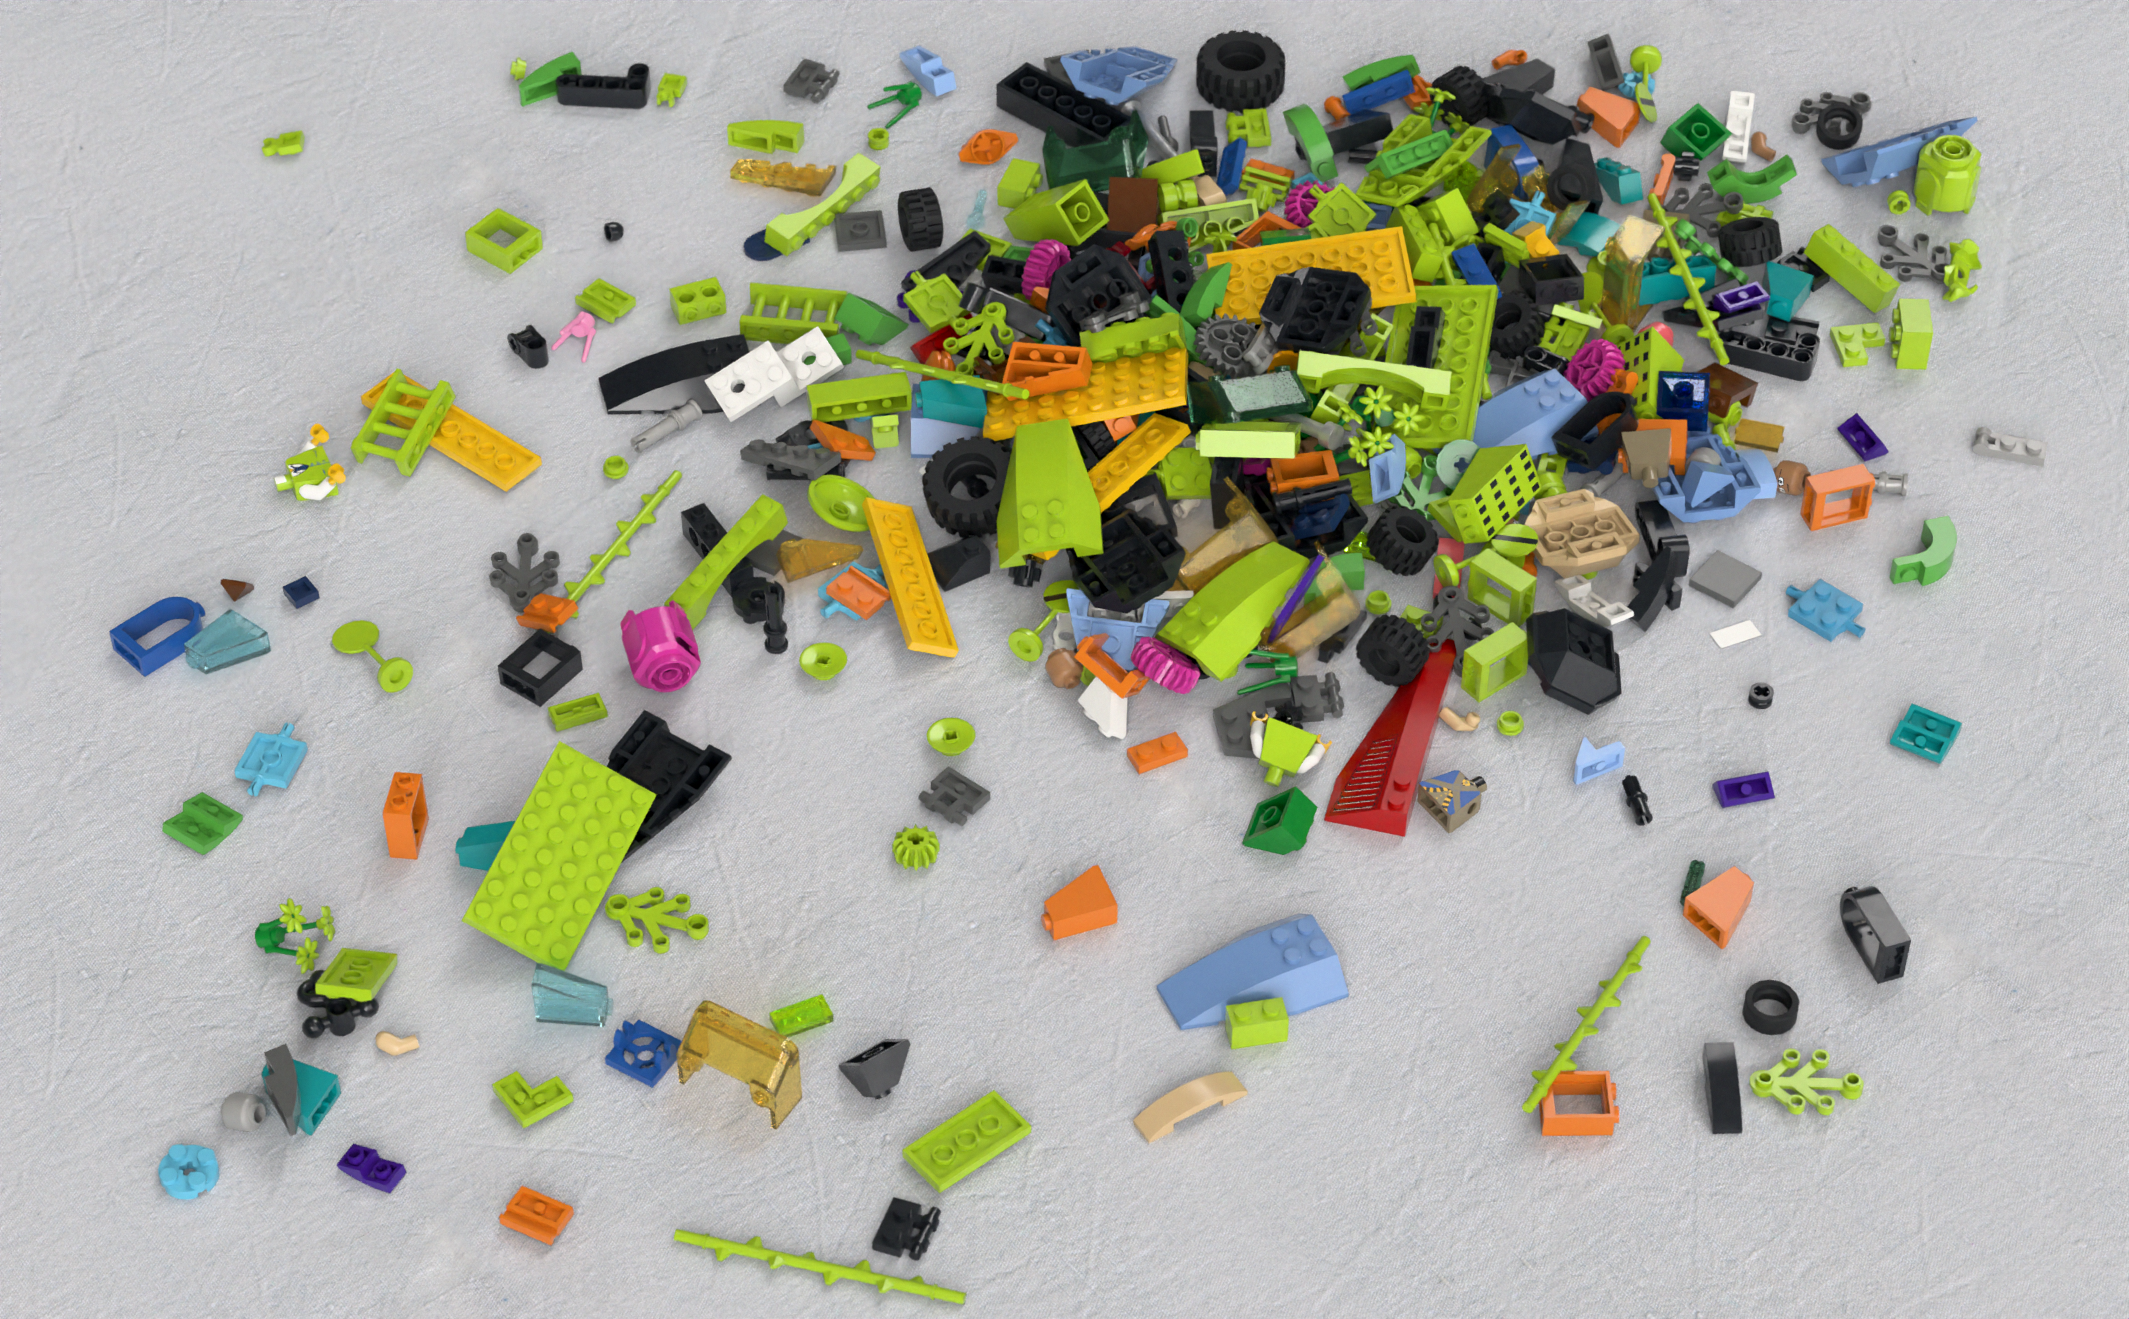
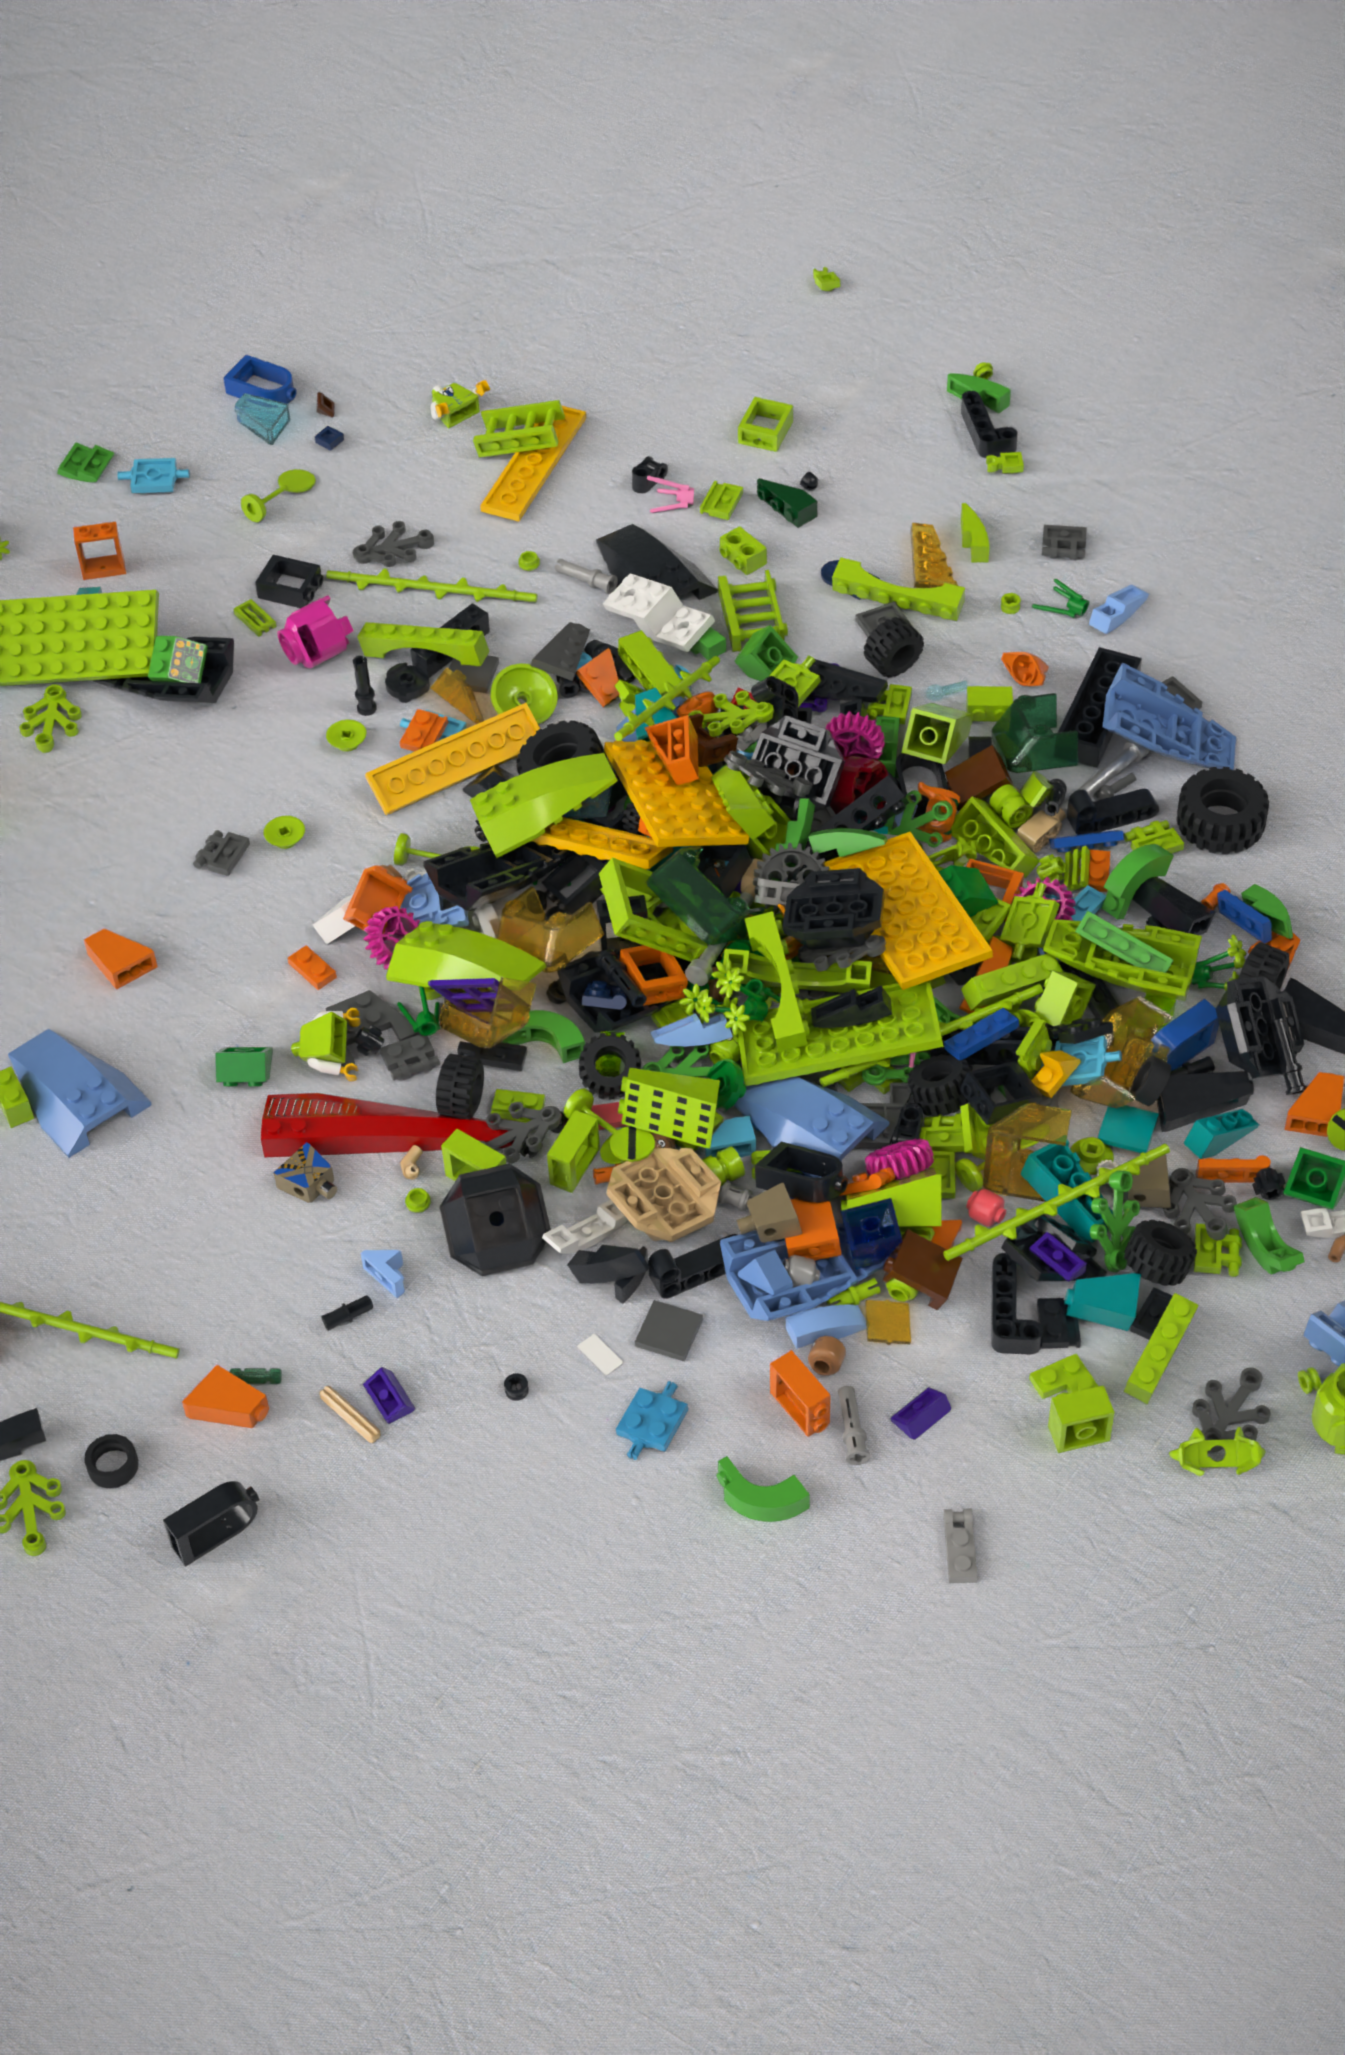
camera: 75 degrees right, 5 degrees up
(547, 612) = (347, 567): orange plate -> none
(640, 251) = (790, 502): none -> dark green slope
(653, 768) = (177, 660): none -> bright green slope
(915, 847) = (156, 842): lime gear -> none
(1378, 602) = (541, 1074): lime plate -> none
(1759, 820) = (350, 1414): none -> tan axle
(1926, 733) = (505, 1533): teal slope -> none

